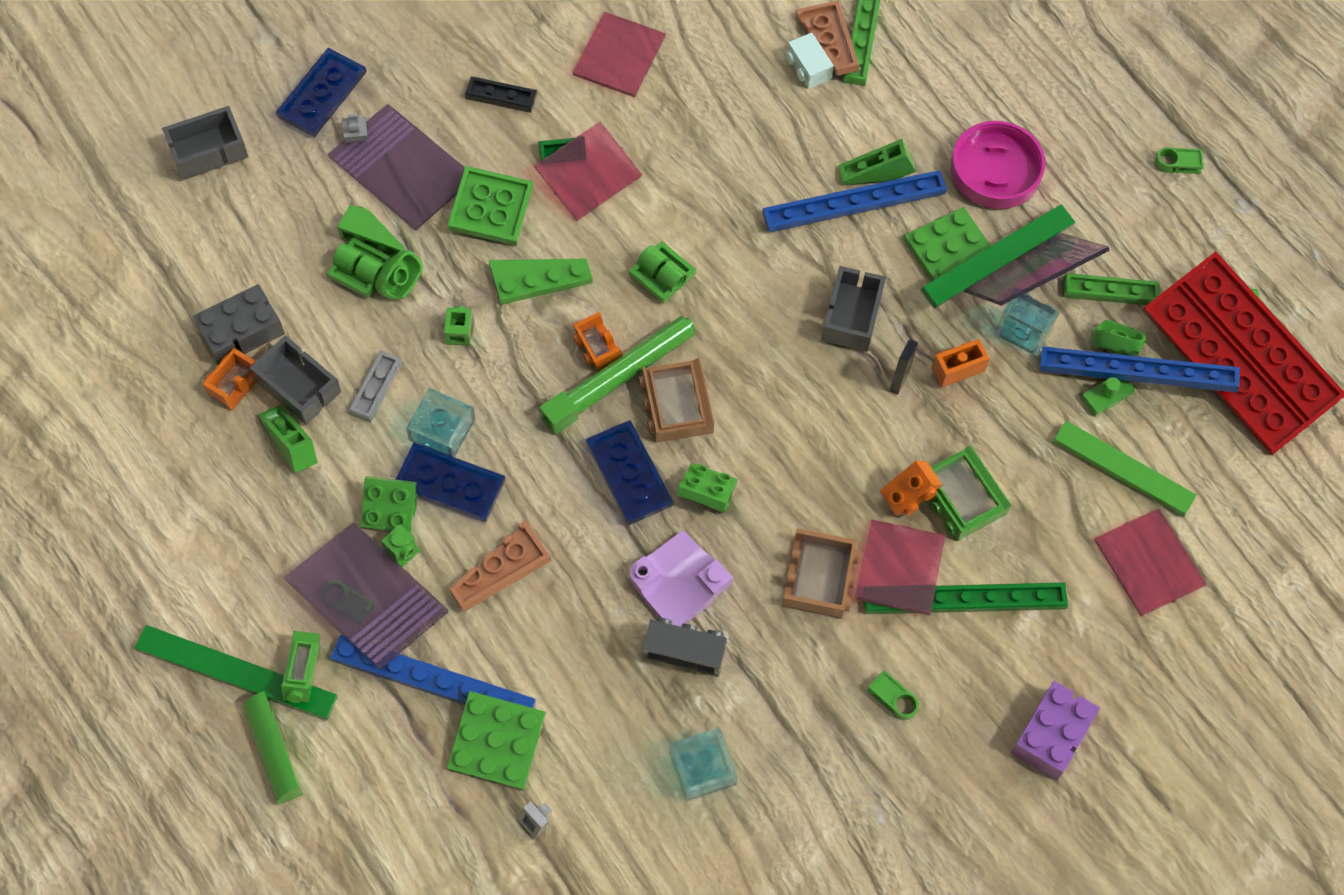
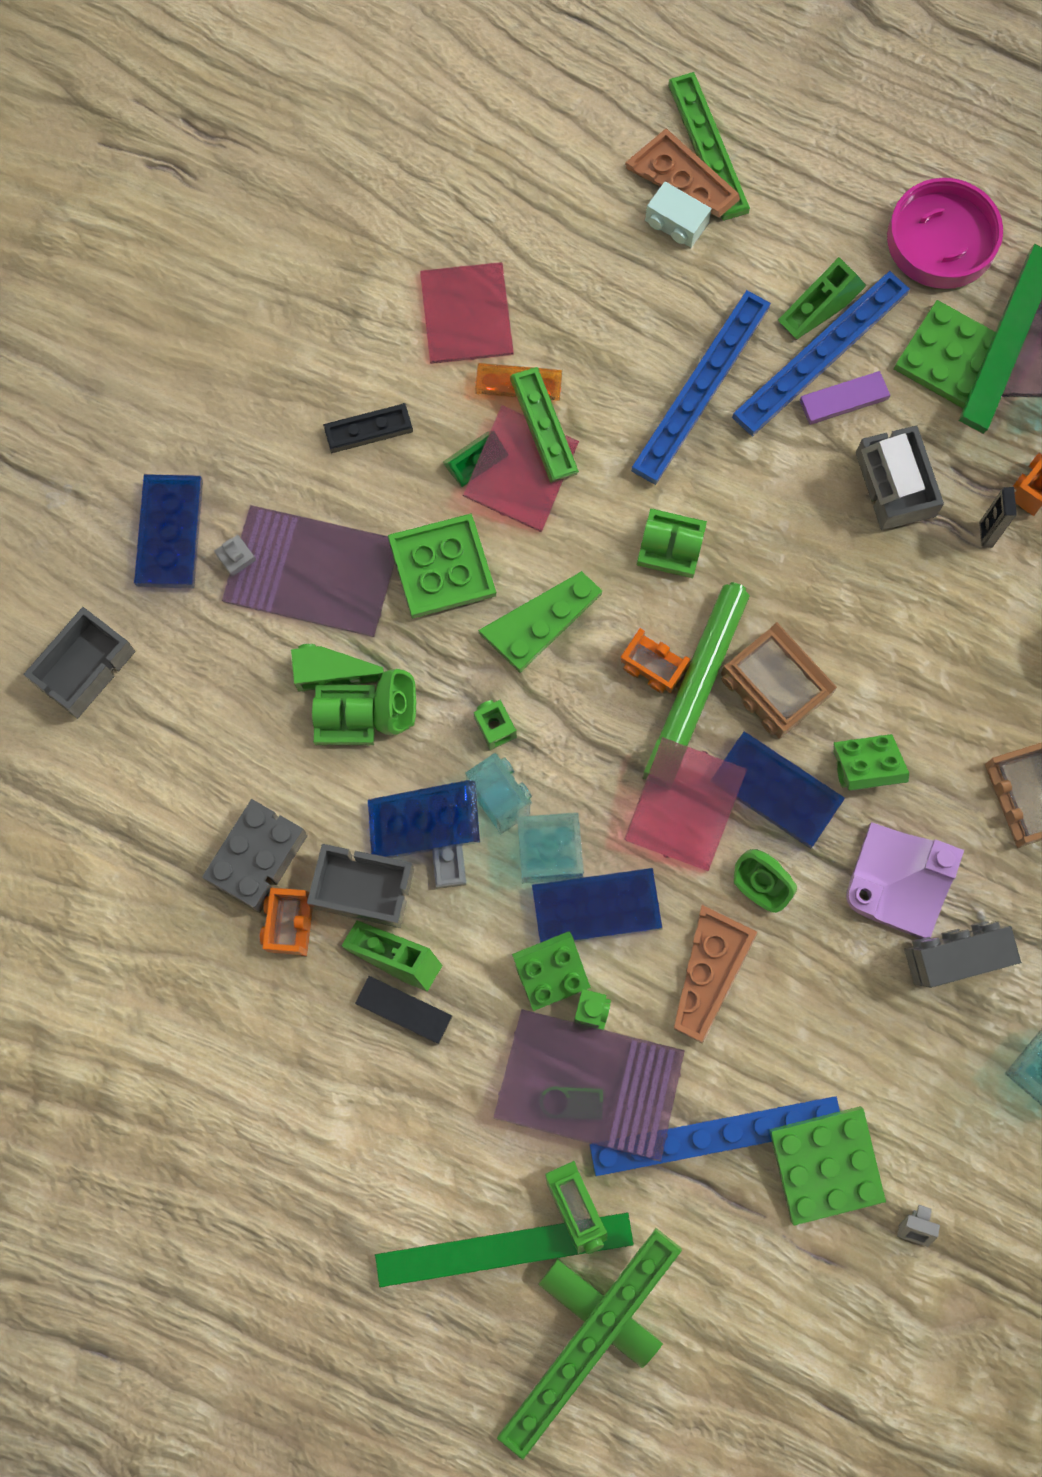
camera: 25 degrees left, 10 degrees up
(248, 758) = (589, 1343): none -> bright green tile
(273, 479) = (403, 1010): none -> black tile
(365, 357) = (424, 820): none -> clear blue plate
(429, 365) = (499, 792): none -> clear light blue brick
(554, 444) = (685, 804): none -> clear pink piece
(578, 526) = (764, 880): none -> bright green piece
(622, 149) = (544, 424): none -> bright green tile
(624, 114) = (495, 380): none -> clear orange plate
(751, 181) = (700, 387): none -> blue plate
(844, 293) = (898, 461): none -> brick
(853, 239) = (844, 397): none -> medium lavender tile

